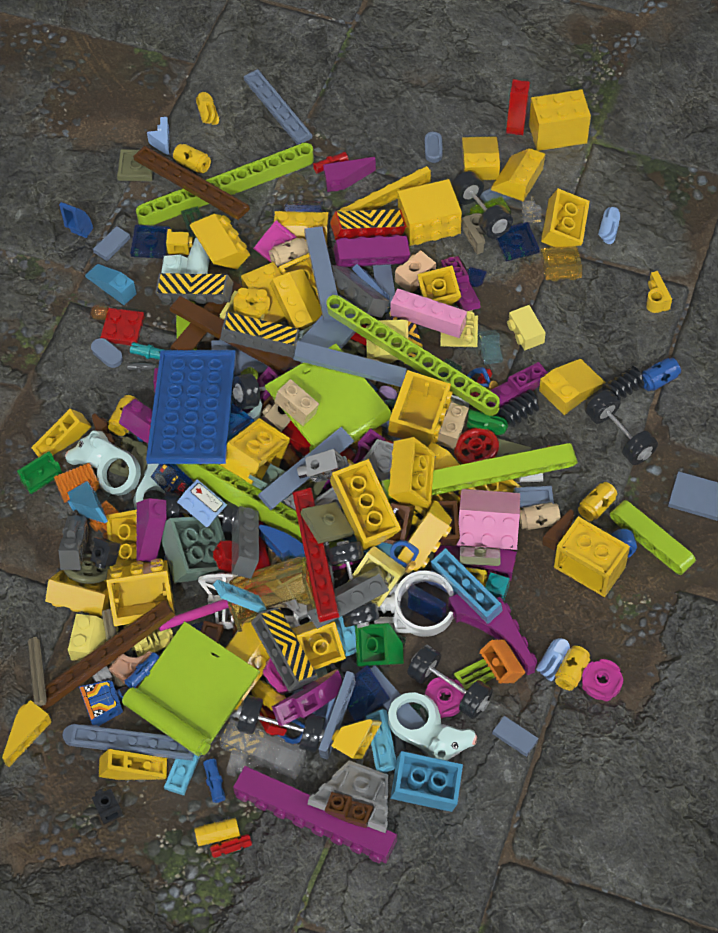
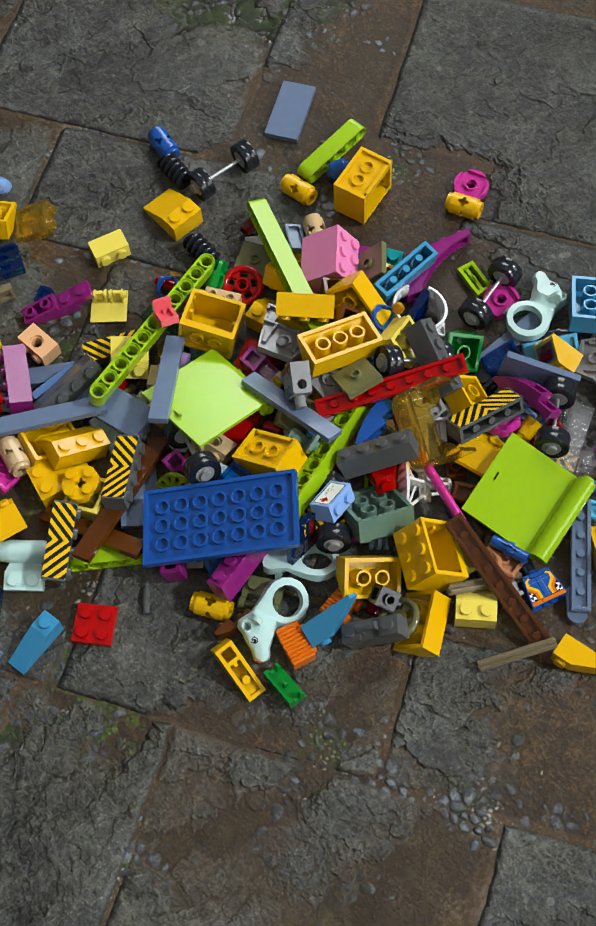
camera: 90 degrees left, 5 degrees up
(99, 312) = (76, 649): clear orange piece -> none
(106, 352) = (128, 637): sand blue tile -> none
(147, 351) = (129, 592): teal pin -> none
(150, 528) = (358, 545): magenta slope -> none
(239, 596) = (445, 446): medium azure tile -> none
(296, 402) = (222, 413): tan brick -> none
(419, 357) = (164, 311): none -> coral bracket
(428, 313) = (100, 320): bright pink brick -> none
(440, 285) = (66, 319): yellow slope -> none
(490, 347) = (127, 280): clear light blue slope -> none
(502, 661) = (465, 254): orange brick -> none
(515, 736) = (529, 248): sand blue tile -> none
(519, 383) = (174, 250): magenta slope -> none
(553, 658) = (455, 219): light blue arm -> none
(557, 532) = (329, 216): reddish brown slope -> none
(658, 293) = (76, 143): yellow plate -> none

